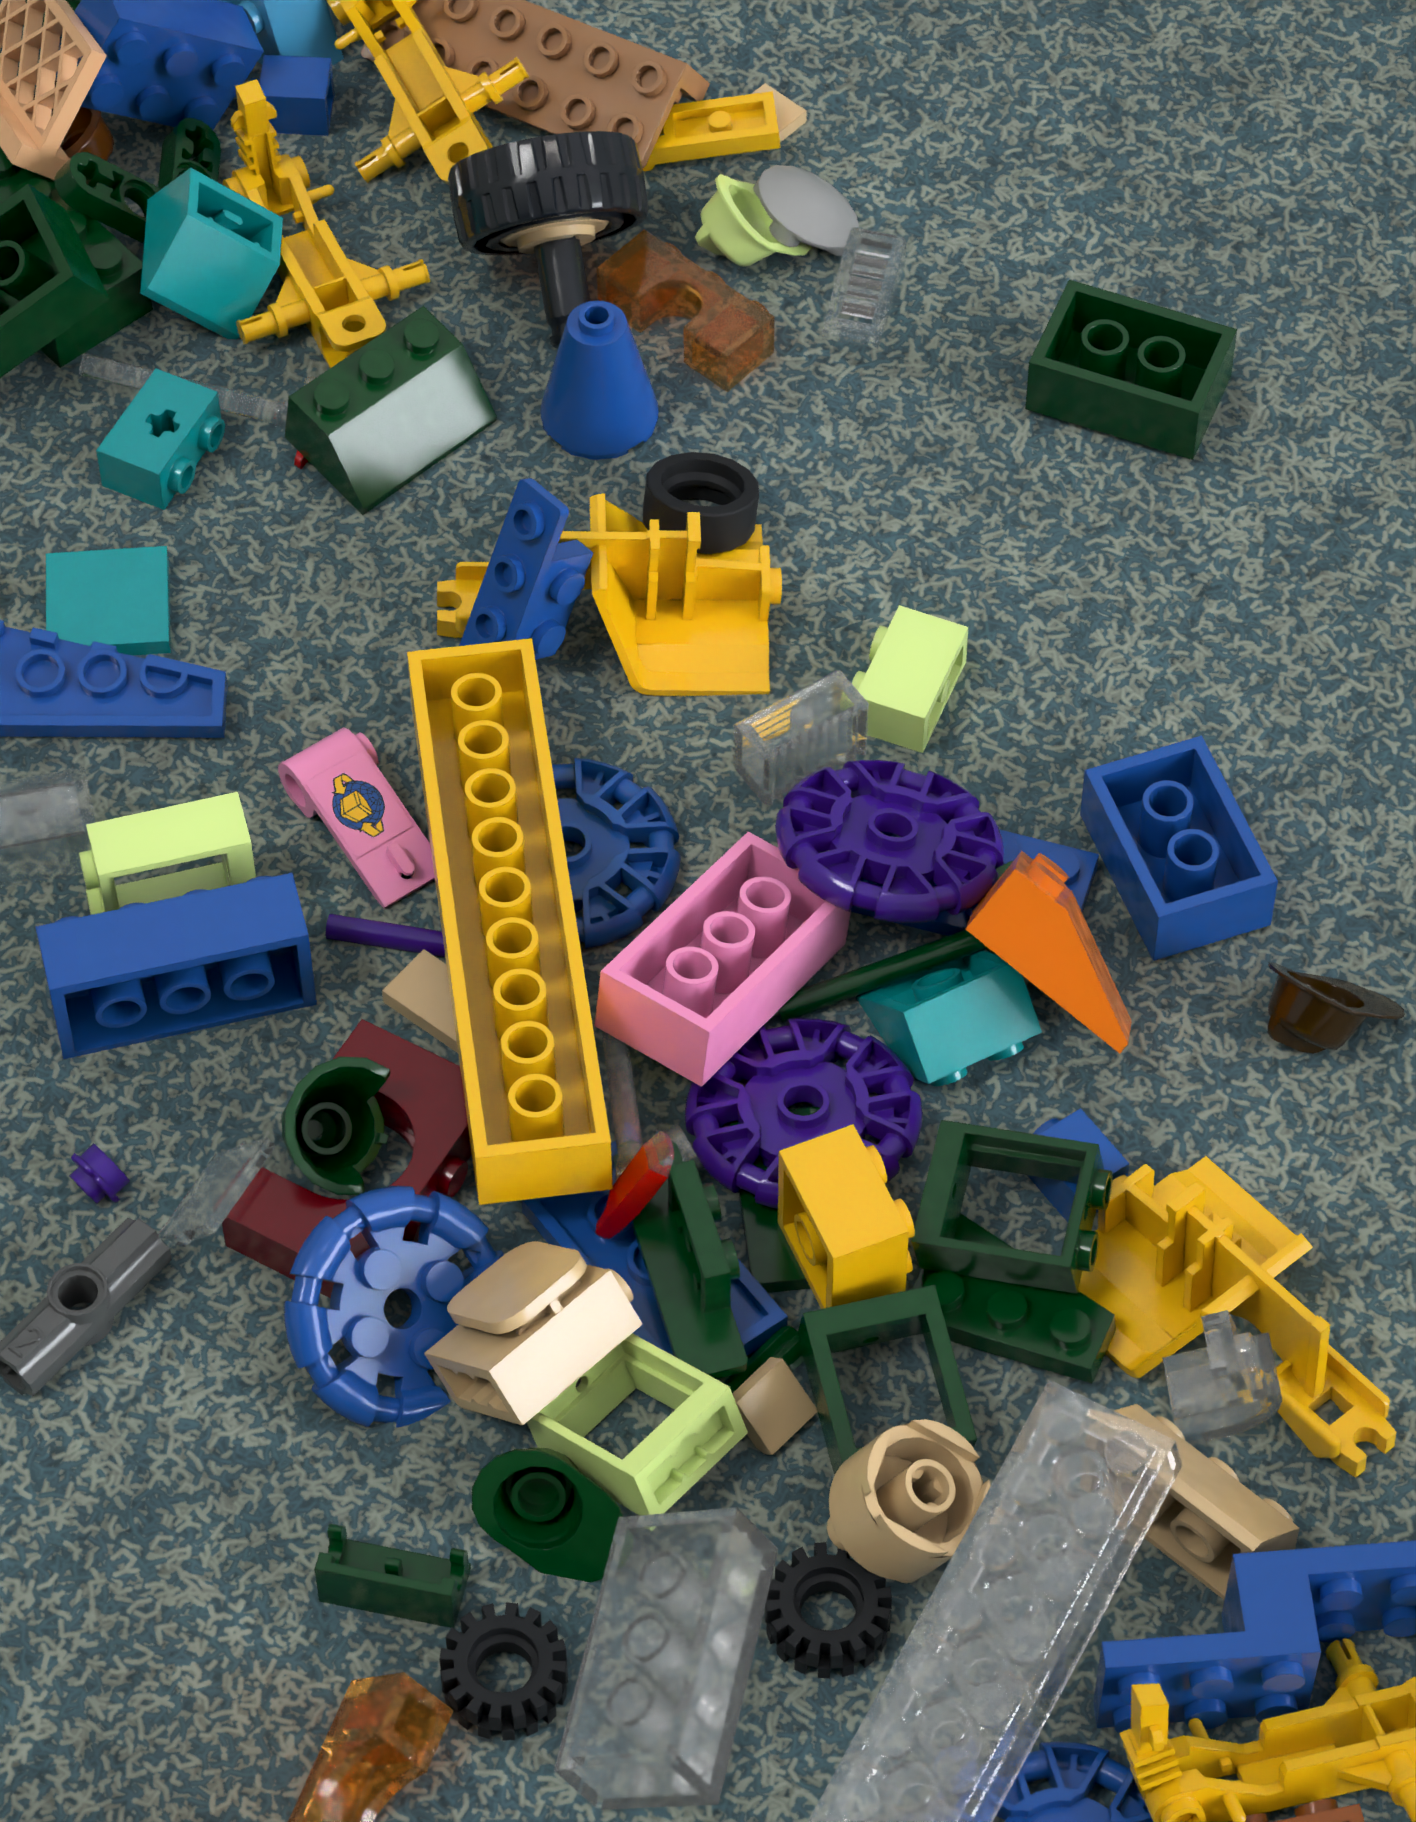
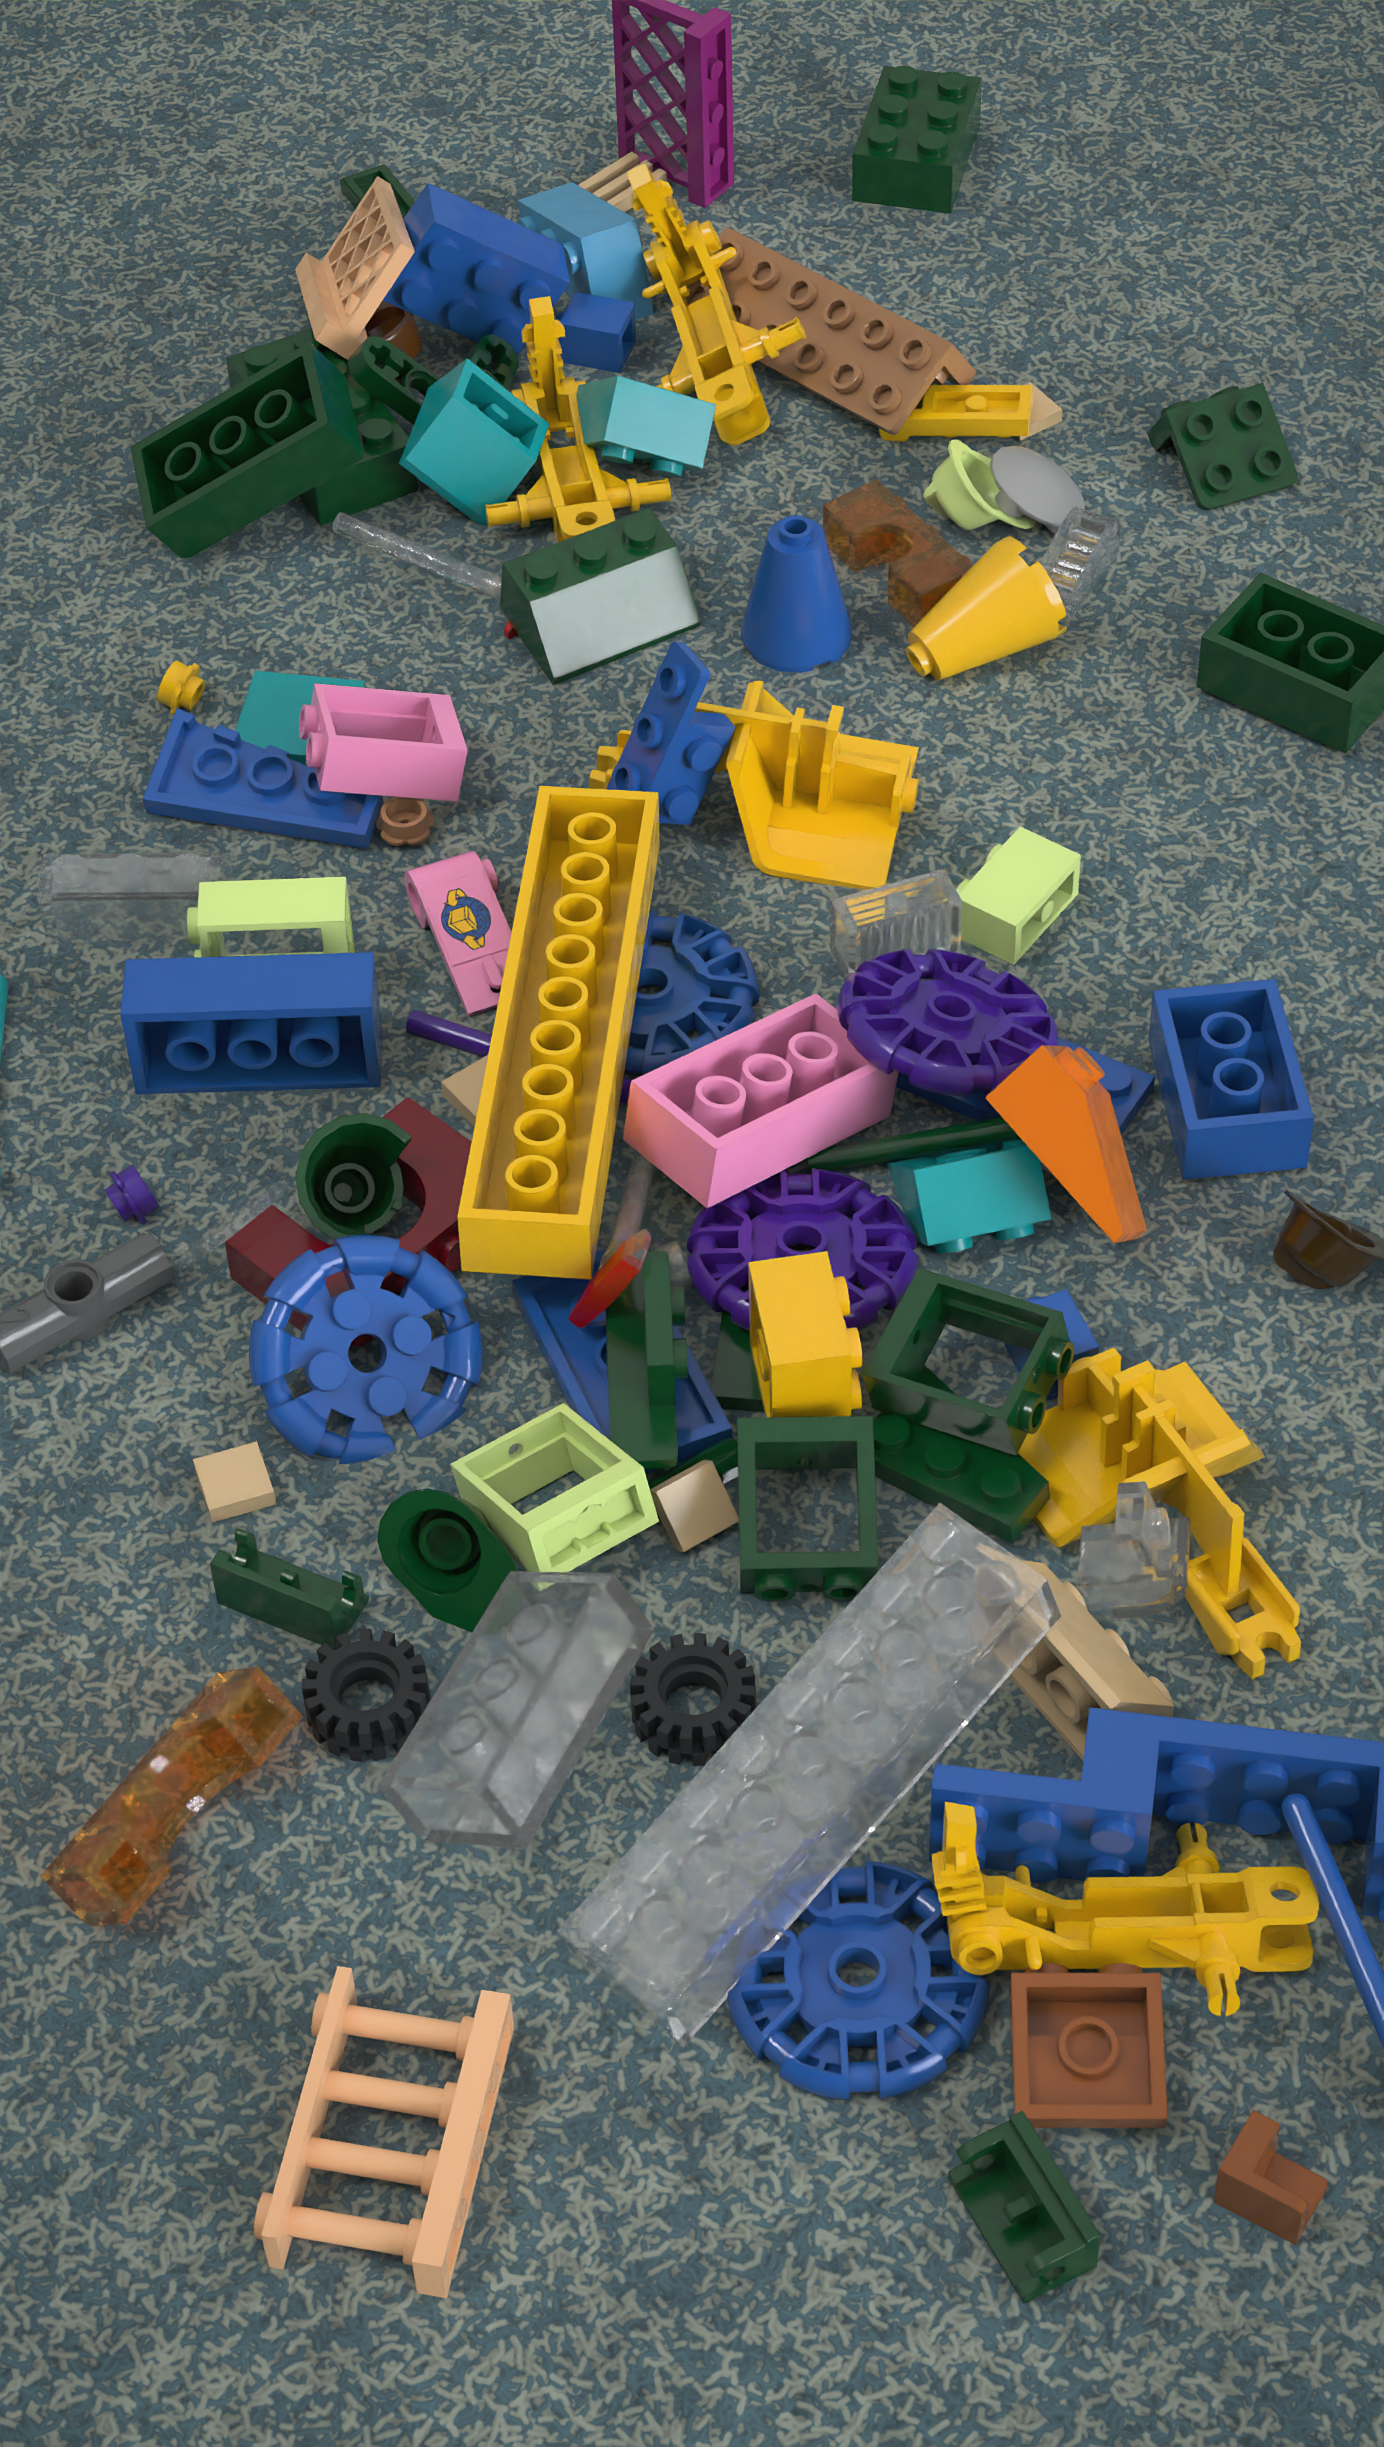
camera: 15 degrees right, 5 degrees down
(161, 439) = (386, 591): teal brick -> none
(249, 586) = (384, 742): none -> bright pink window
(256, 688) = (404, 821): none -> medium nougat plate
(299, 1468) = (234, 1481): none -> tan tile
(381, 203) = (645, 424): none -> slope
(530, 1330) = (479, 1390): tan brick -> none
(548, 202) = (791, 434): black wheel -> none
(709, 479) = (876, 715): black tyre -> none
(799, 366) = (988, 615): none -> yellow cone
(906, 1500) = (781, 1597): tan brick -> none
(988, 128) = (1227, 445): none -> dark green bracket

